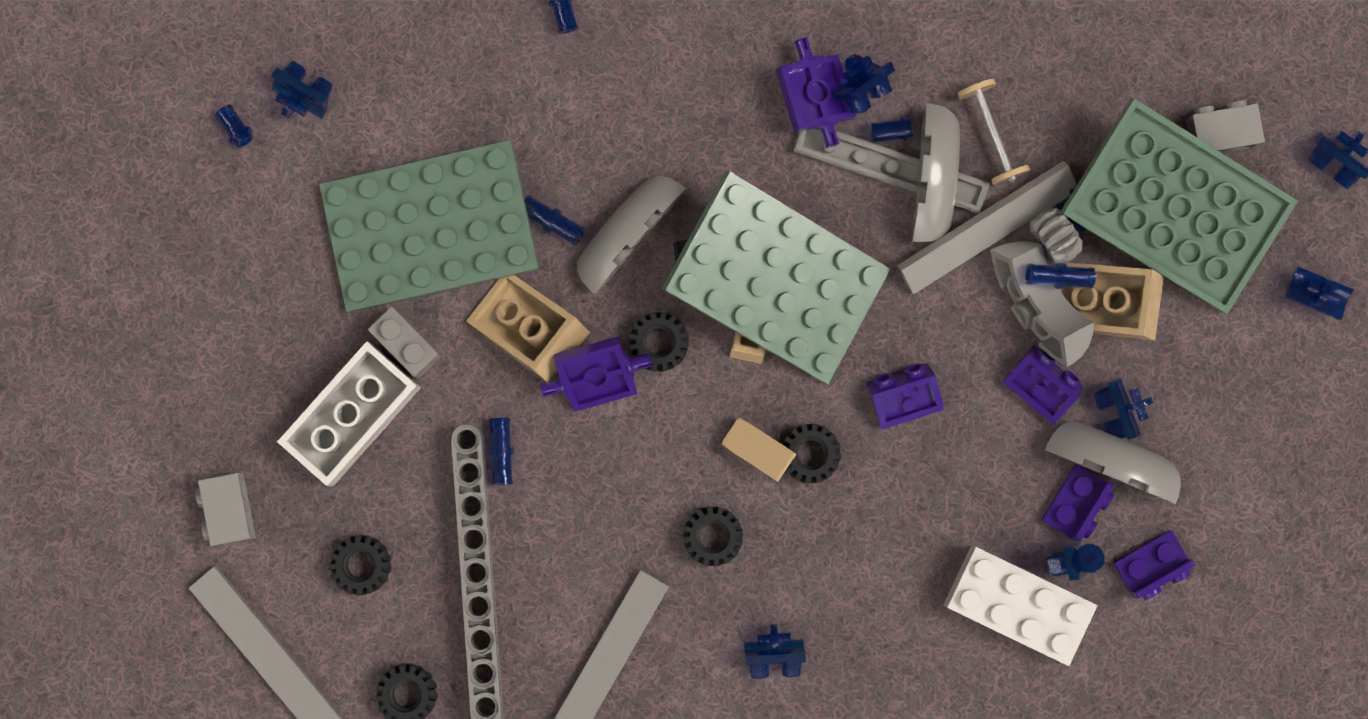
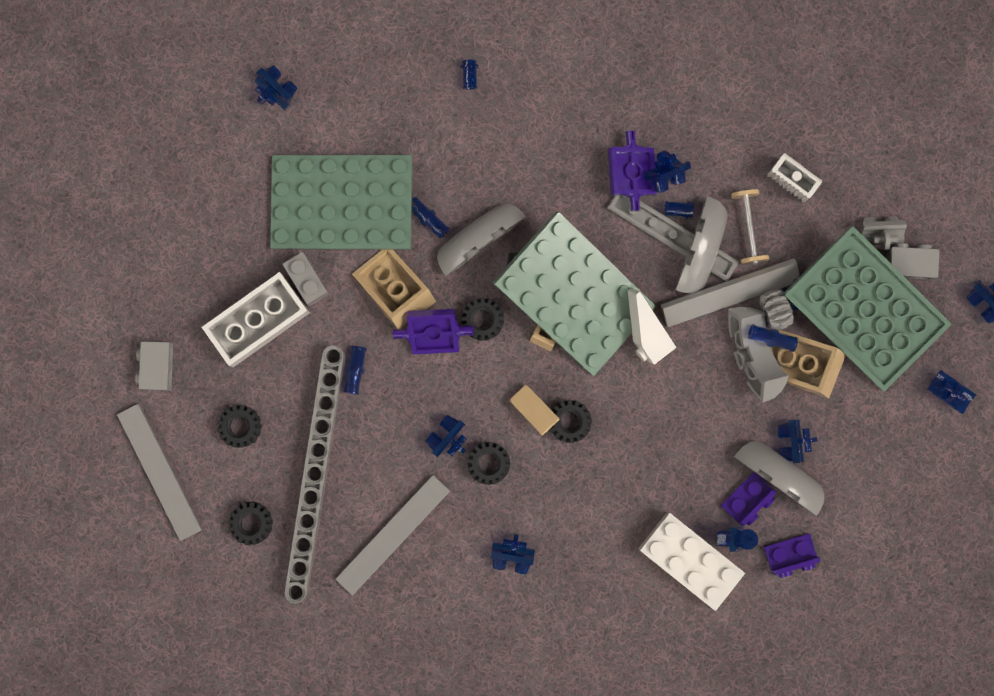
camera: 15 degrees right, 0 degrees up
(235, 128) = (222, 101): clear blue pin -> none
(640, 526) = (438, 444): none -> clear blue hips
(887, 306) = (647, 331): none -> white slope
(905, 395) = (645, 396): dark purple bracket -> none
(1039, 51) = (794, 177): none -> white brick
(1044, 384) = (744, 411): dark purple bracket -> none
(1177, 97) = (884, 232): none -> light grey hips

